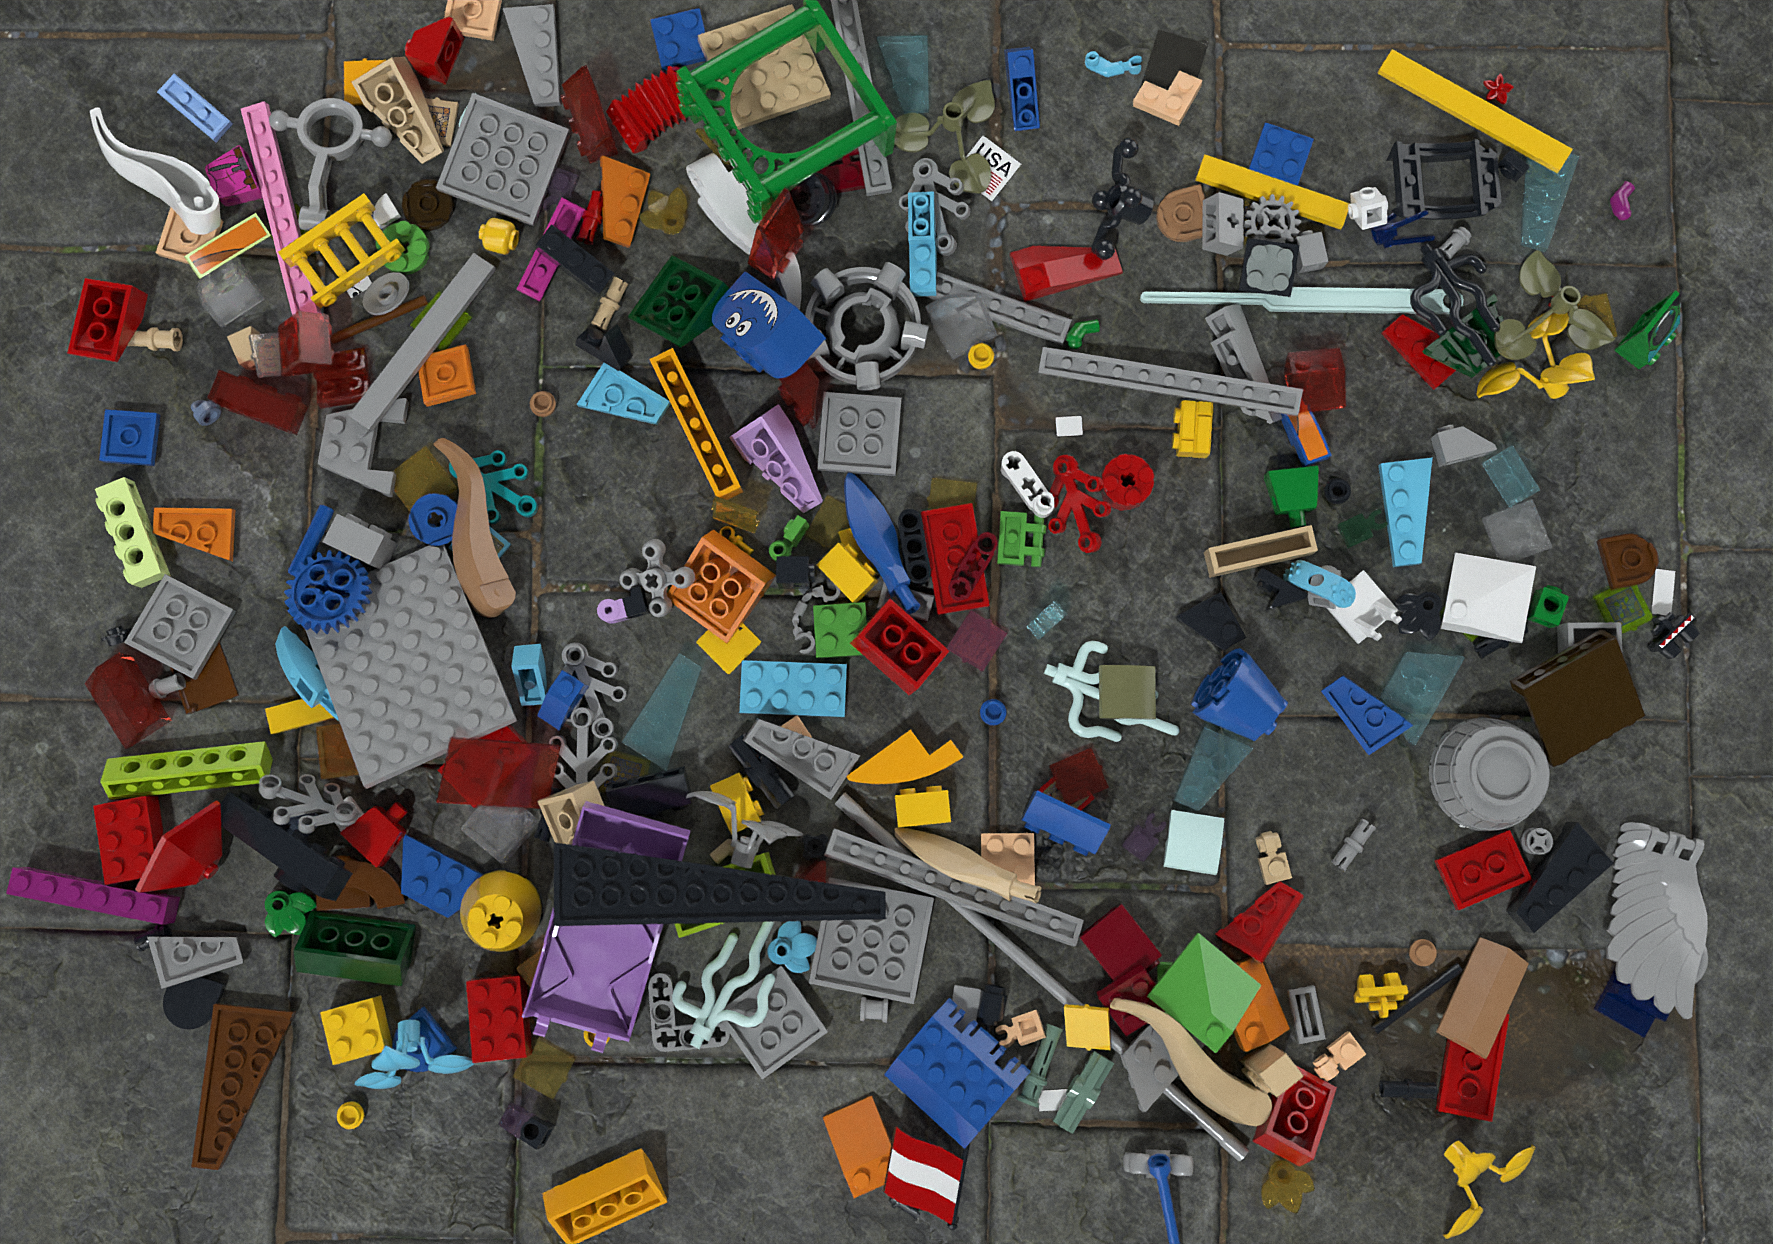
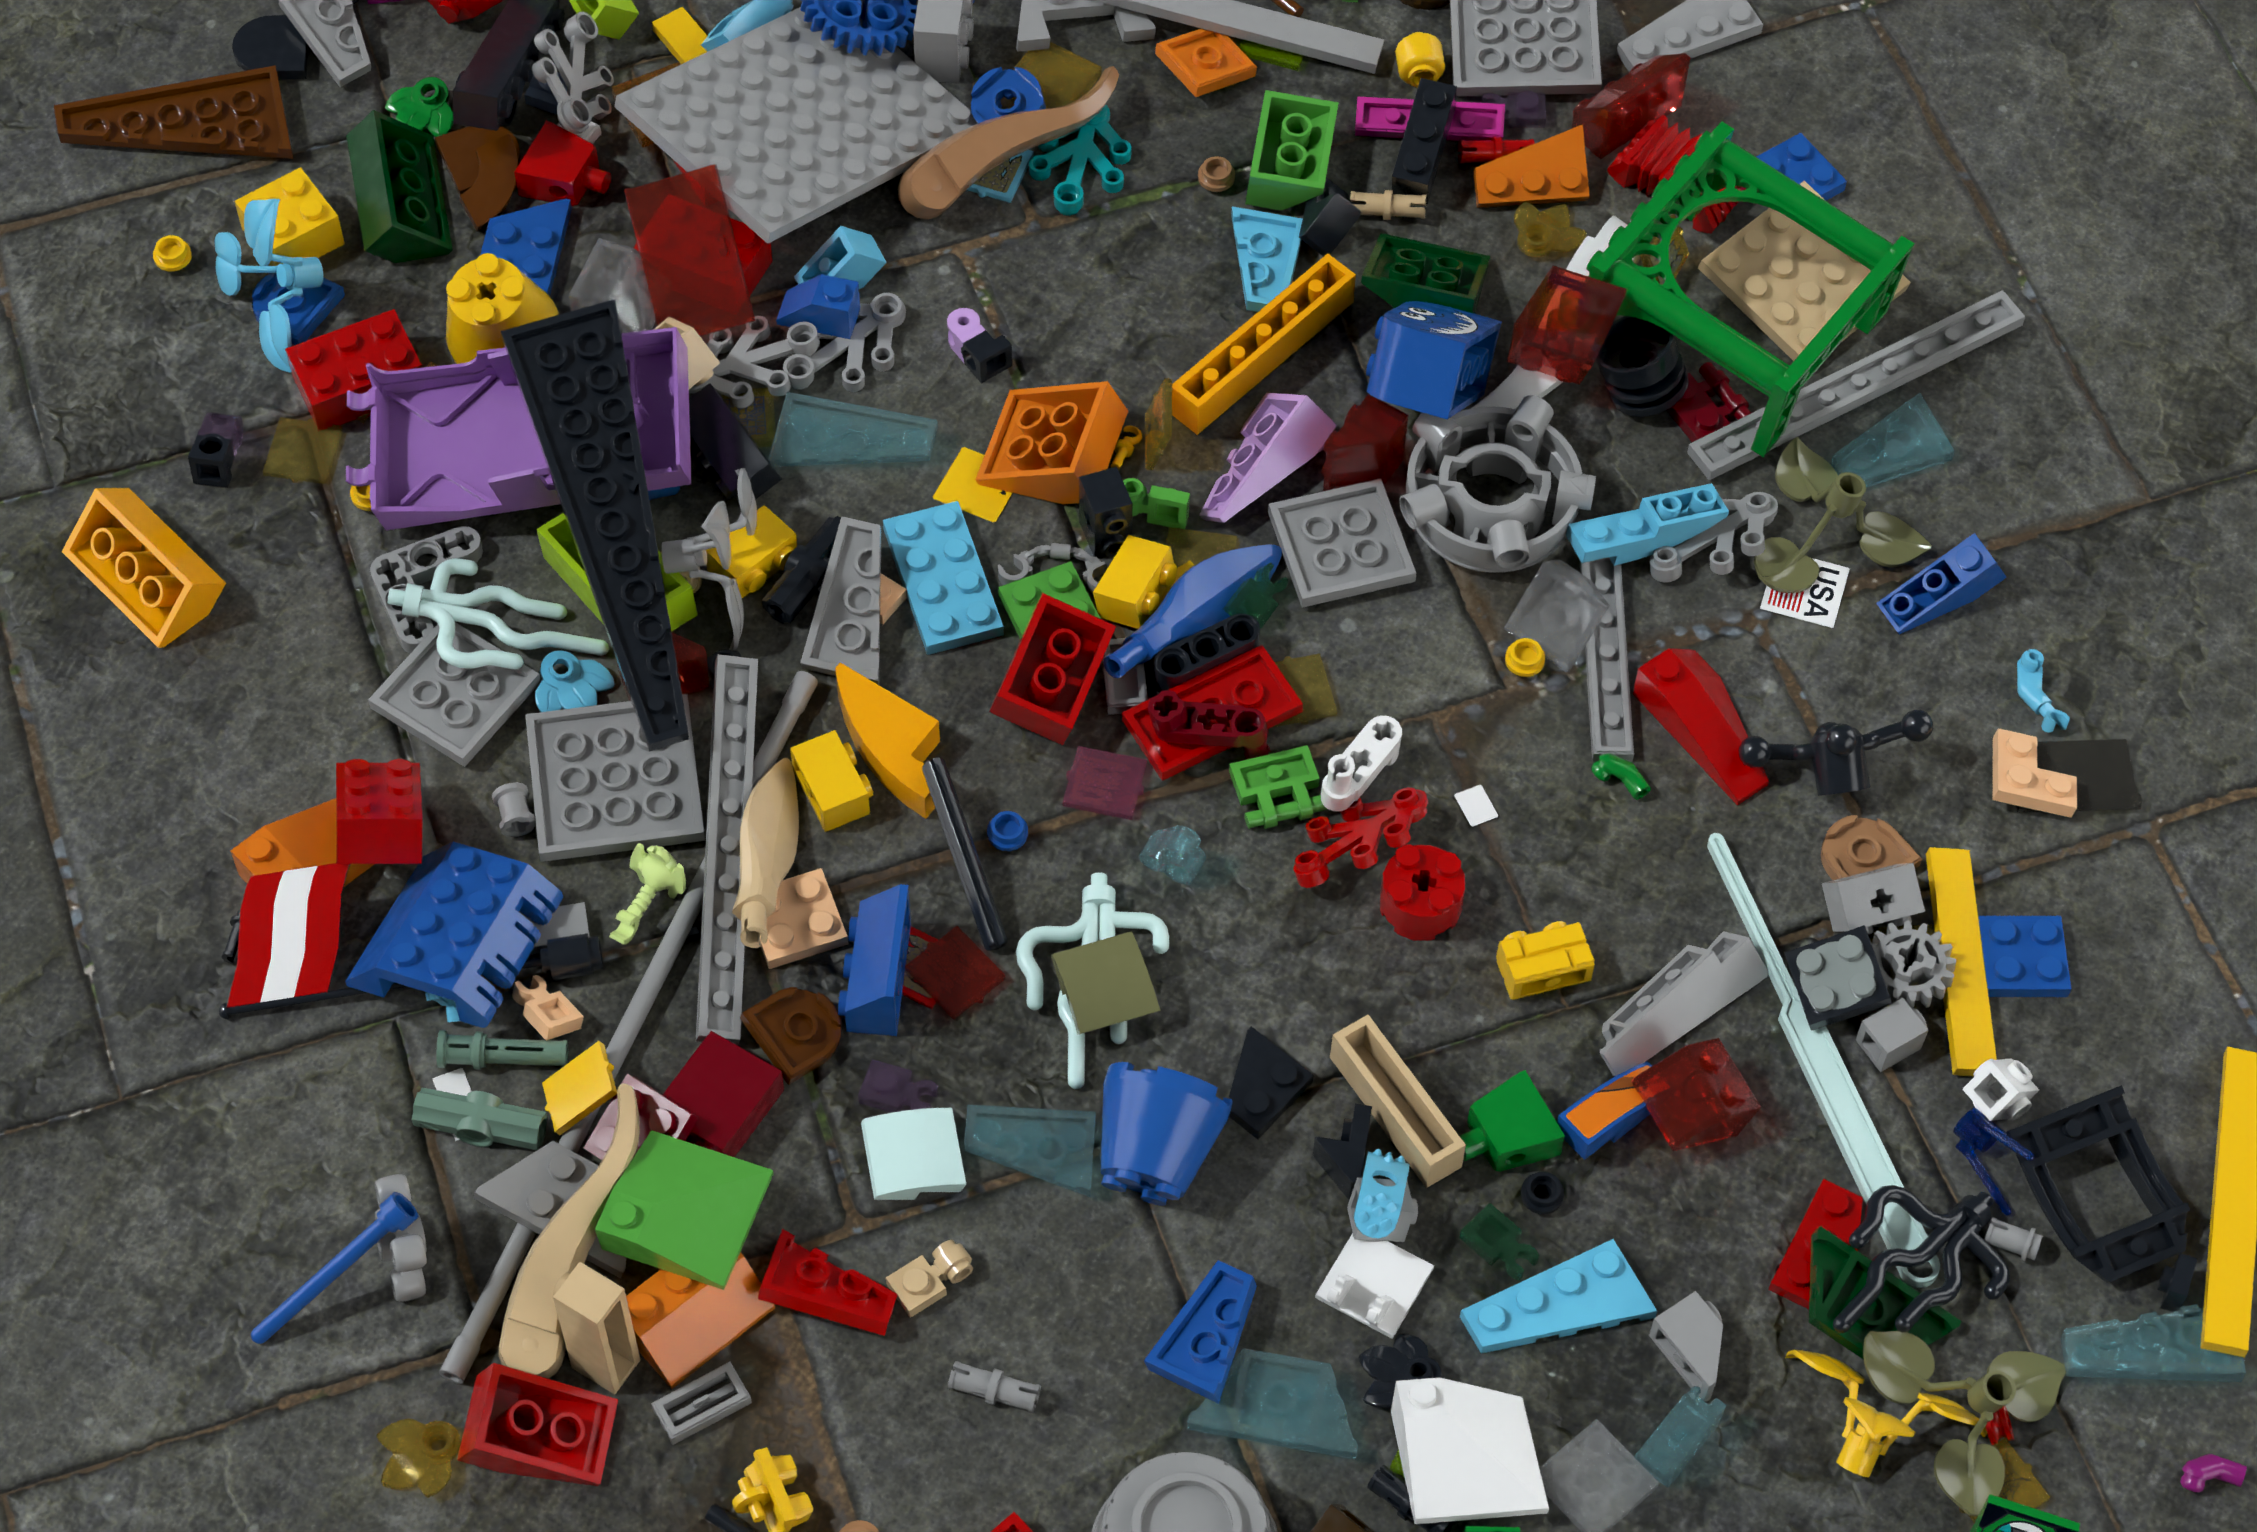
camera: 65 degrees right, 25 degrees down
(549, 349) = (1291, 150): none -> bright green slope
(657, 578) = (1031, 362): light grey gear -> none
(863, 1099) = (378, 812): none -> red brick
(883, 504) = (1255, 595): none -> clear green plate
(953, 934) = (658, 872): none -> yellowish green piece
(1006, 745) = (964, 854): none -> black axle
(1087, 884) = (795, 1030): none -> reddish brown tile
(1170, 381) = (1601, 902): light grey plate -> none
(1344, 1052) = (658, 1478): light nougat plate -> none

